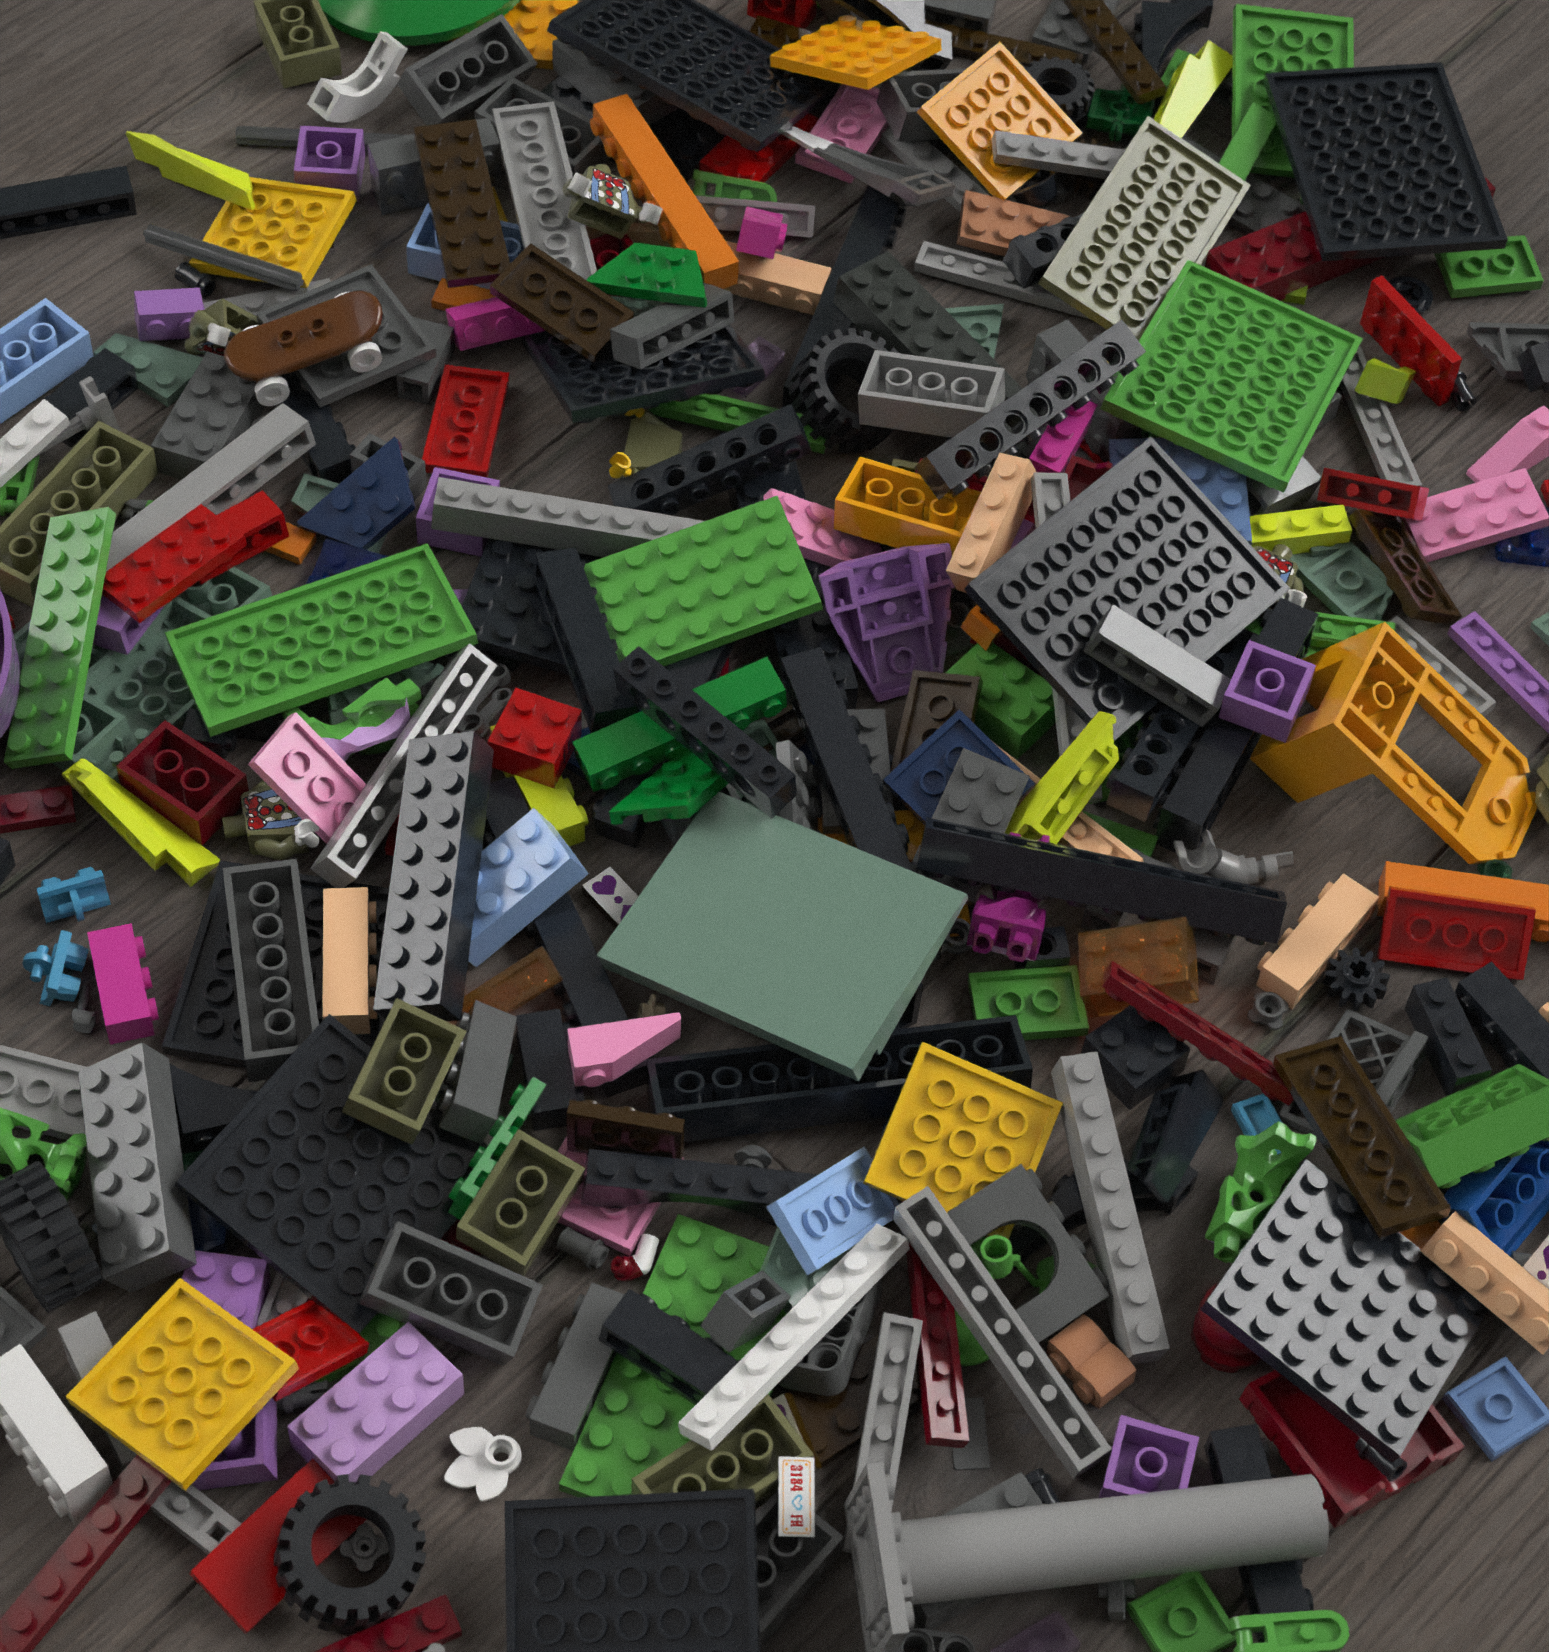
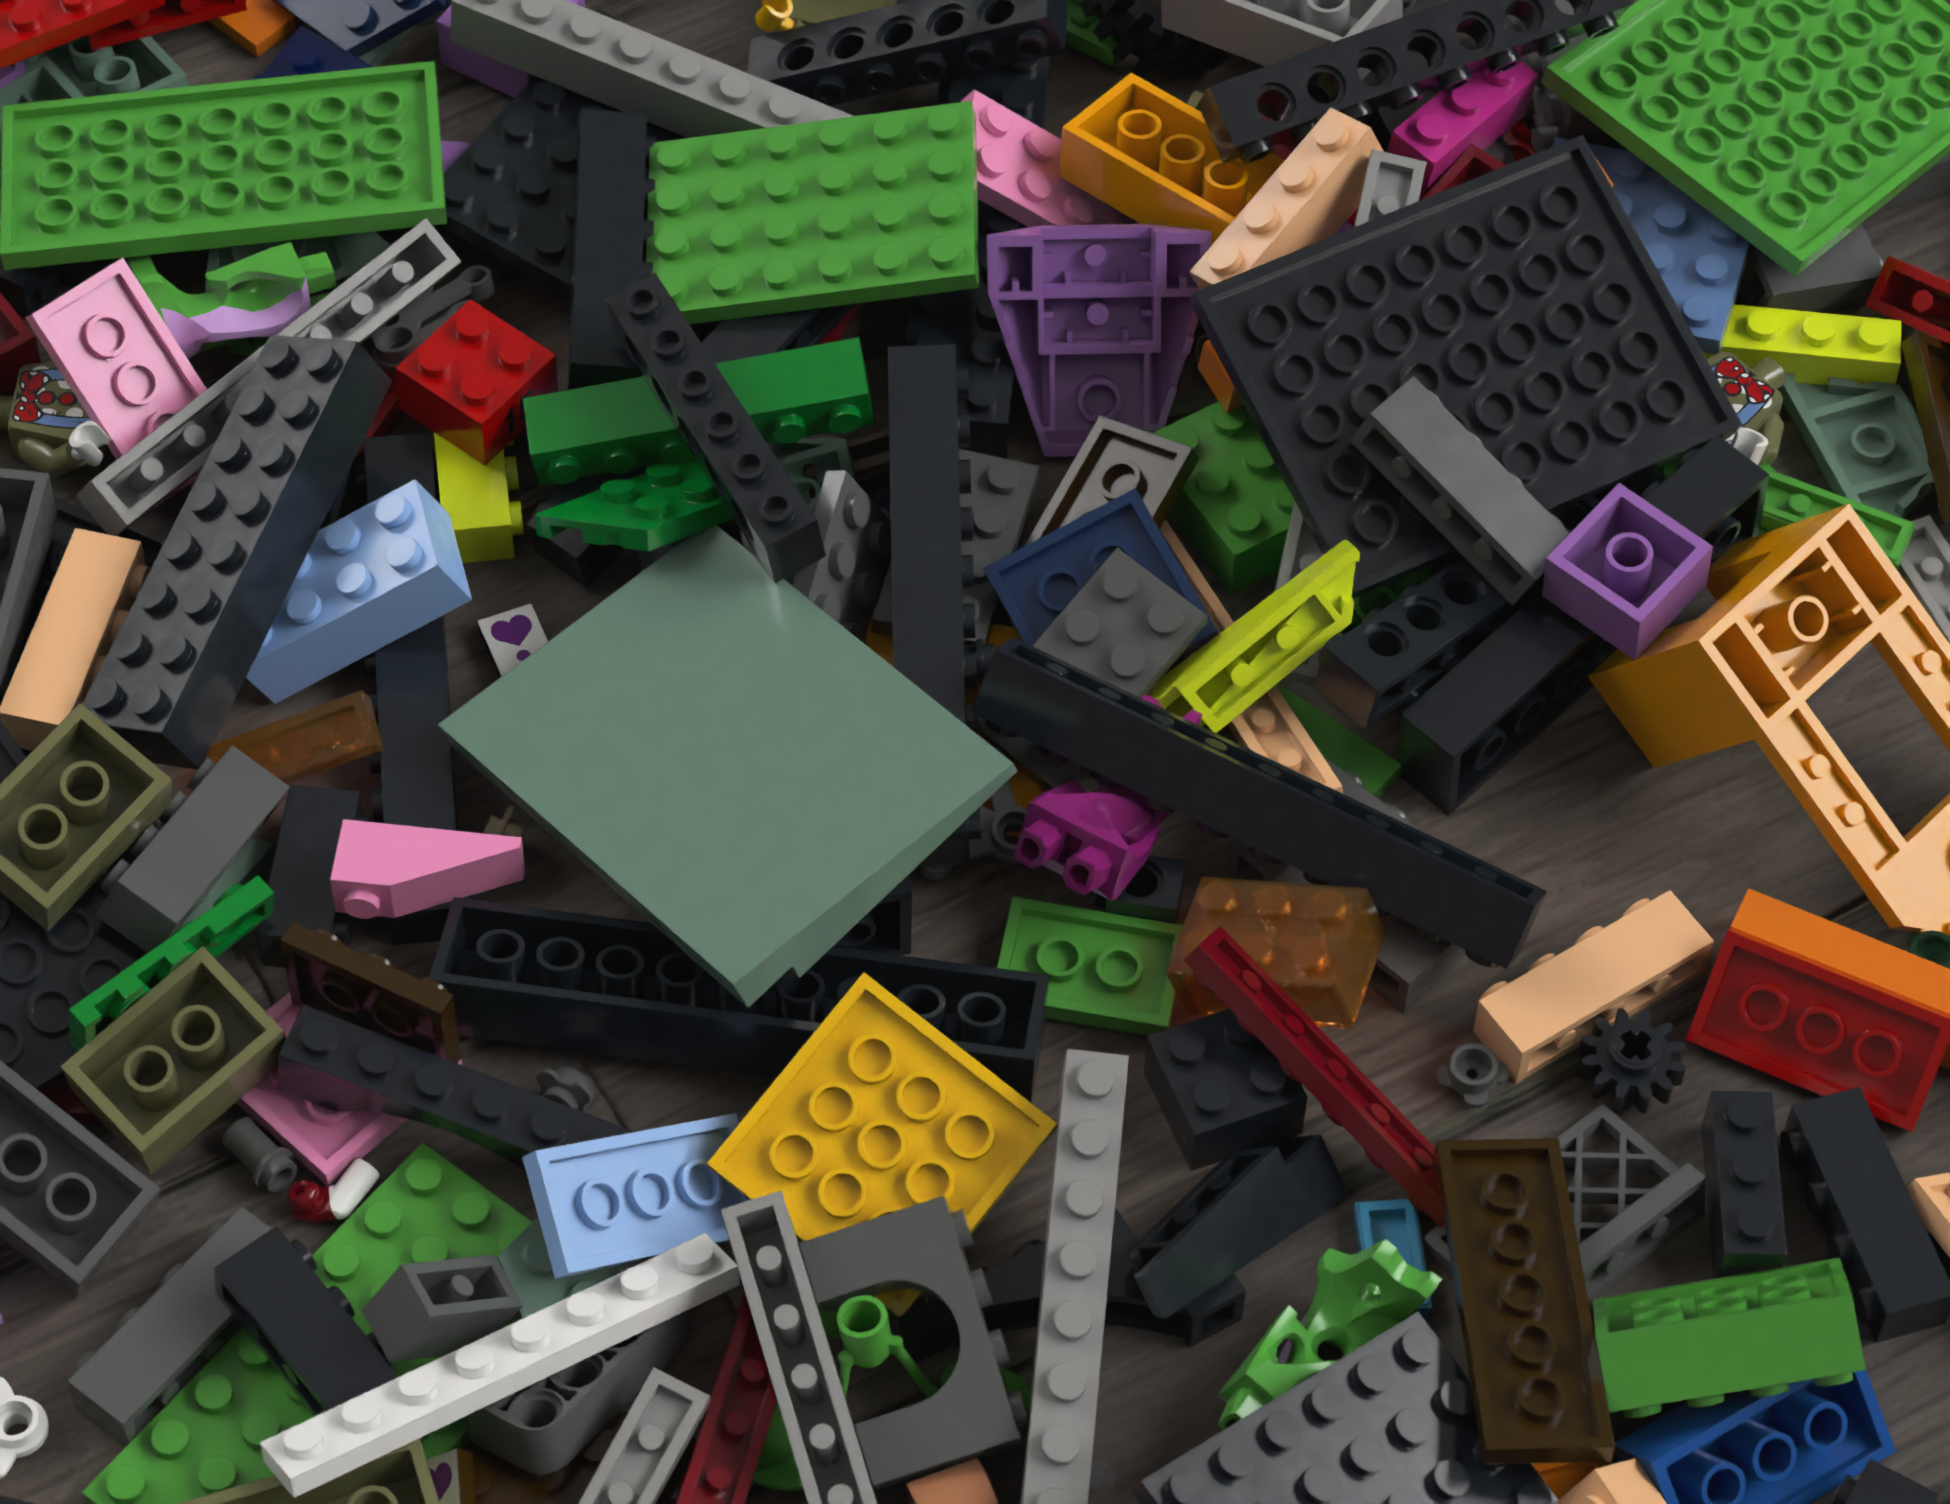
camera: 20 degrees right, 0 degrees up
(1228, 866) = (1491, 835): light grey piece -> none

